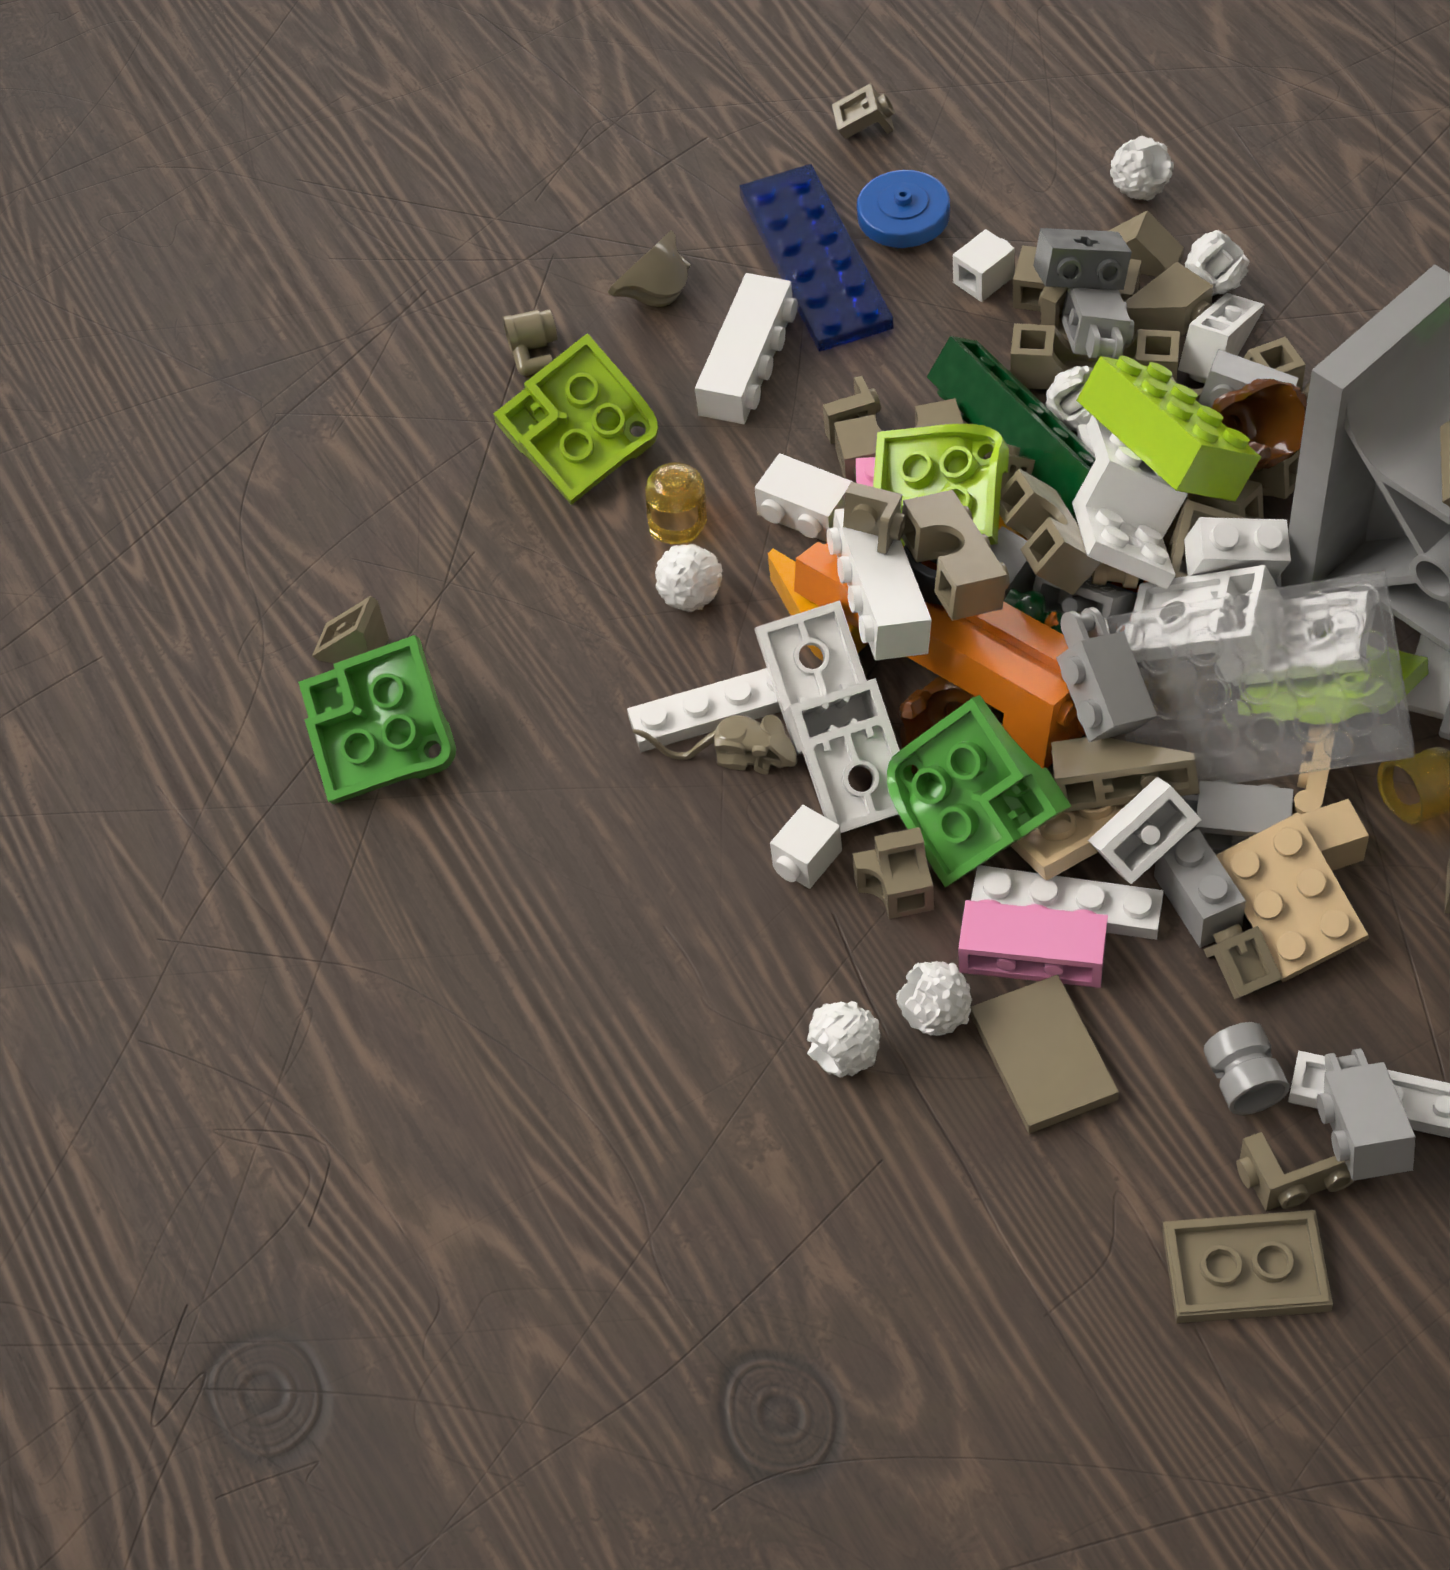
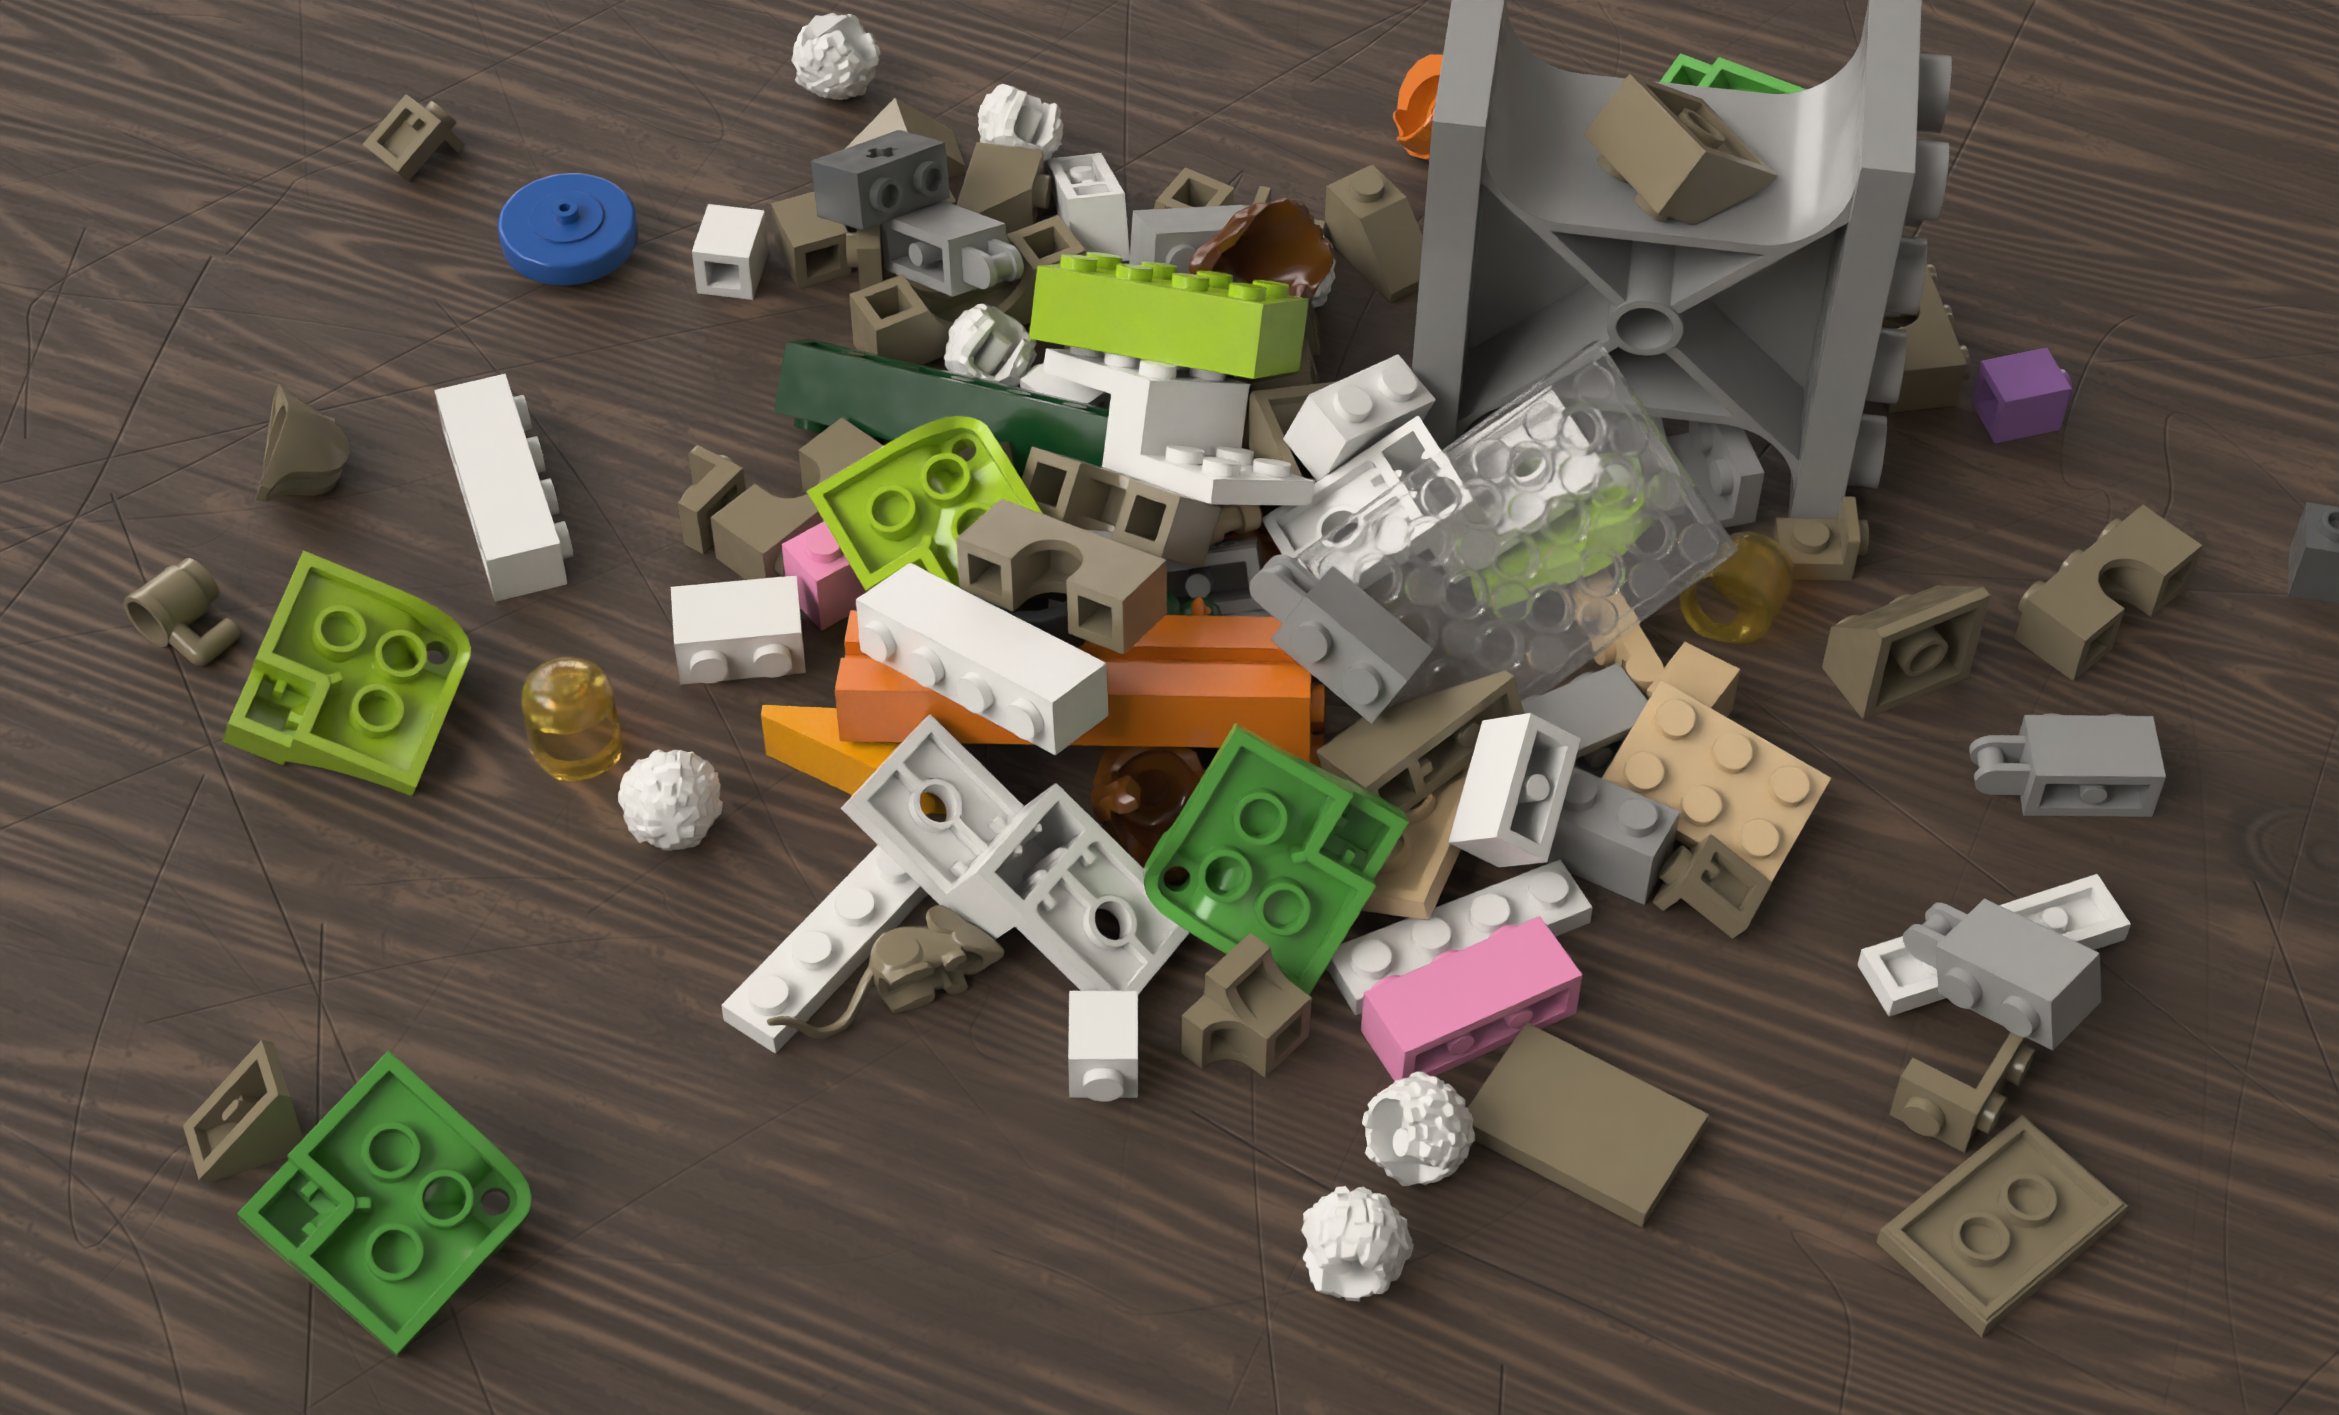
camera: 45 degrees left, 5 degrees down
(817, 256) = (484, 328): clear blue plate -> none
(874, 513) = (928, 573): dark tan bracket -> none
(1246, 1070) = (1829, 1003): light grey wheel -> none

